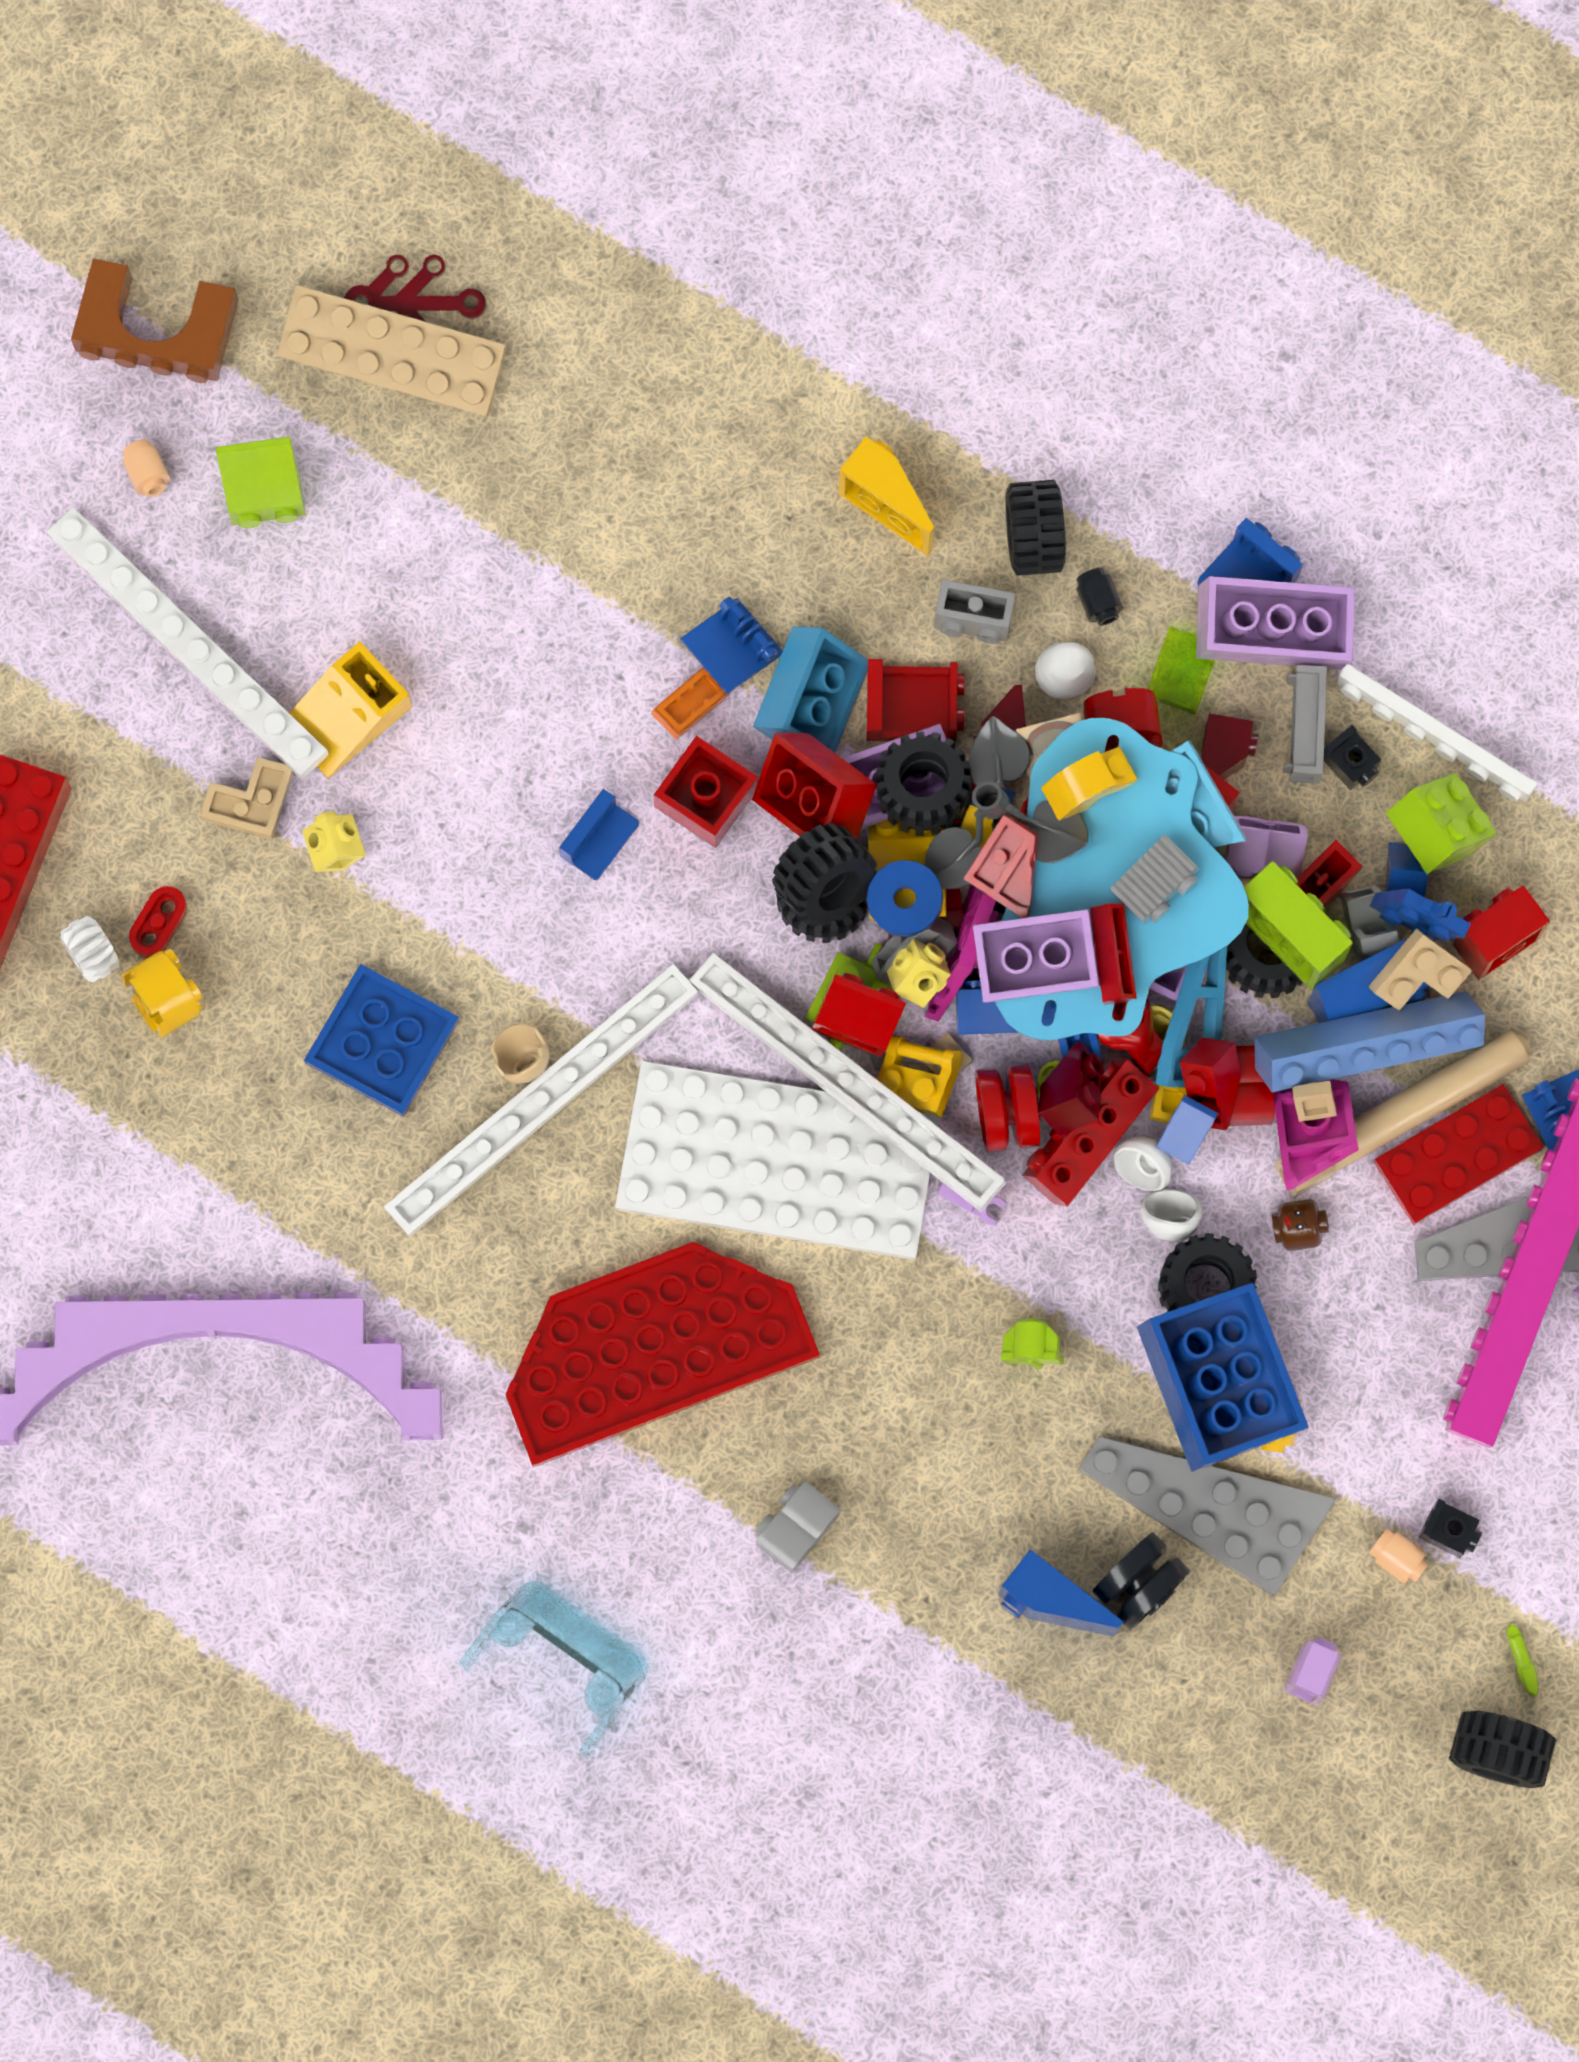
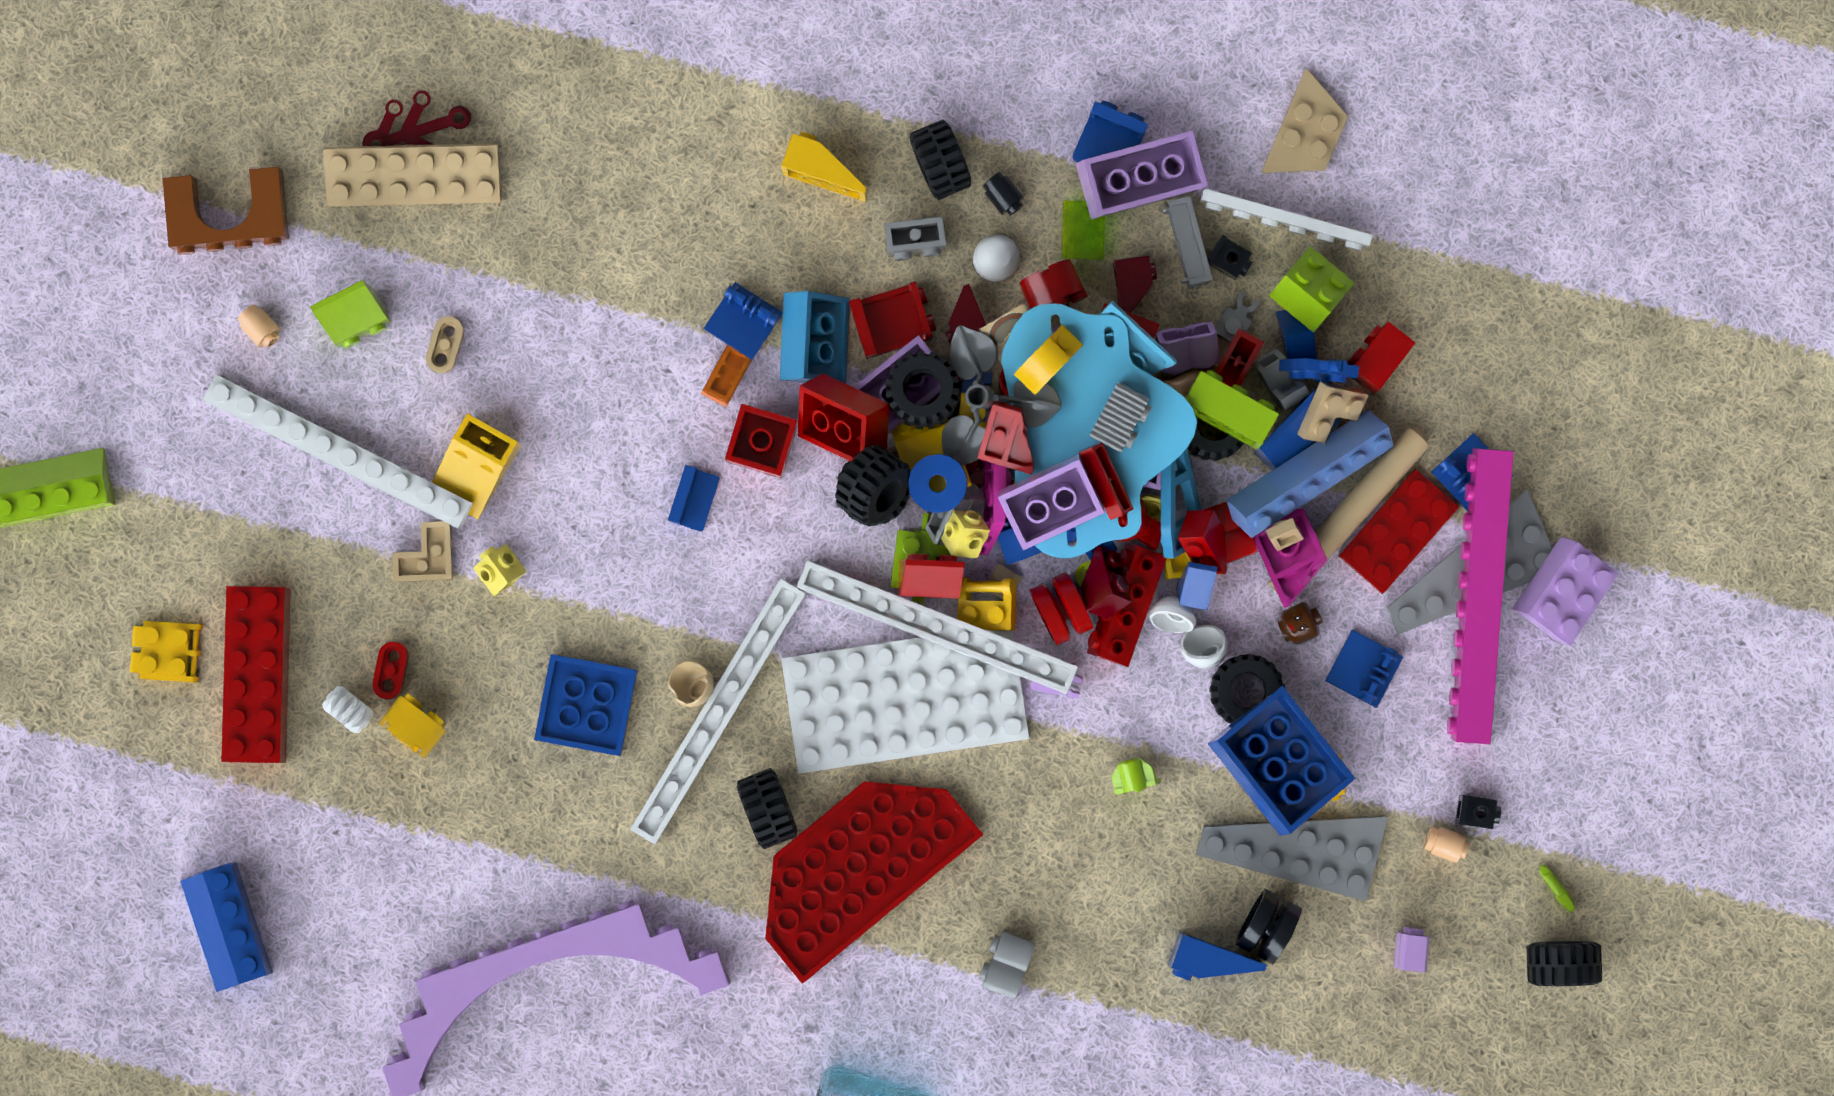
camera: 15 degrees left, 10 degrees up
(358, 560) = (445, 345): none -> tan plate
(562, 1231) = (767, 808): none -> black tyre
(1331, 830) = (1235, 319): none -> light grey plate
(1363, 1307) = (1364, 668): none -> blue hinge
(1495, 641) = (1307, 131): none -> tan wing

